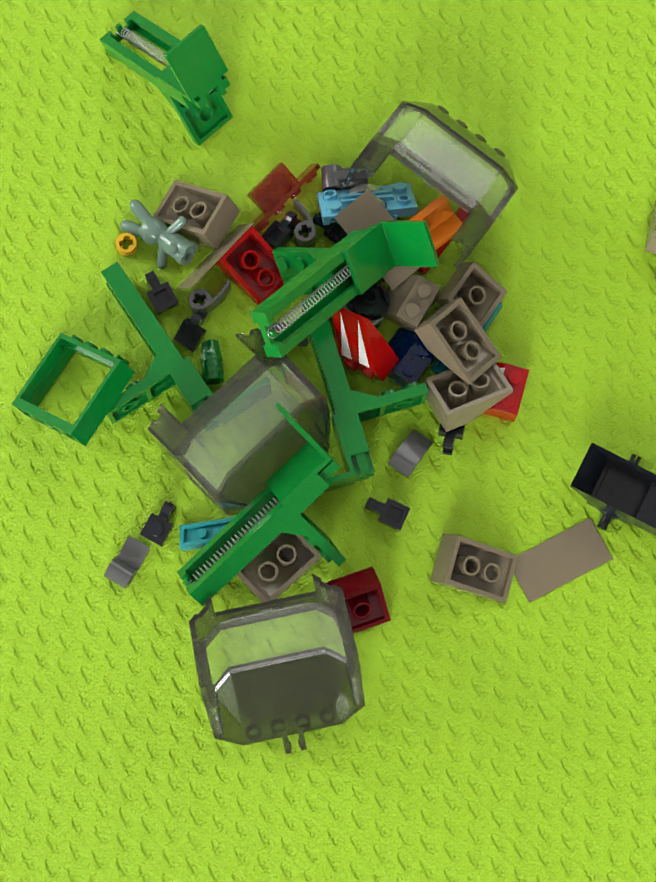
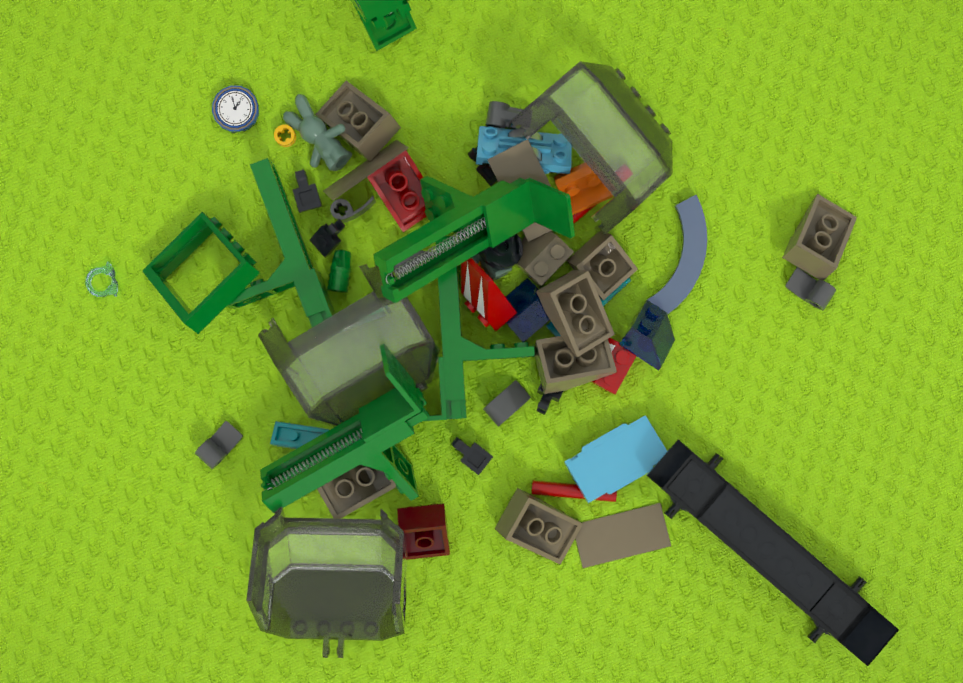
camera: 20 degrees right, 10 degrees up
(71, 230) = (235, 109): none -> tile
(157, 527) = (255, 417): black plate -> none
(276, 189) = (440, 115): clear red bracket -> none
(281, 232) = (434, 159): black plate -> none
(304, 227) = (458, 158): dark grey panel -> none
(501, 525) = (564, 490): none -> red piece
(534, 481) = (616, 459): none -> medium azure piece
(535, 350) = (649, 335): none -> slope
(556, 275) = (691, 258): none -> sand blue tile

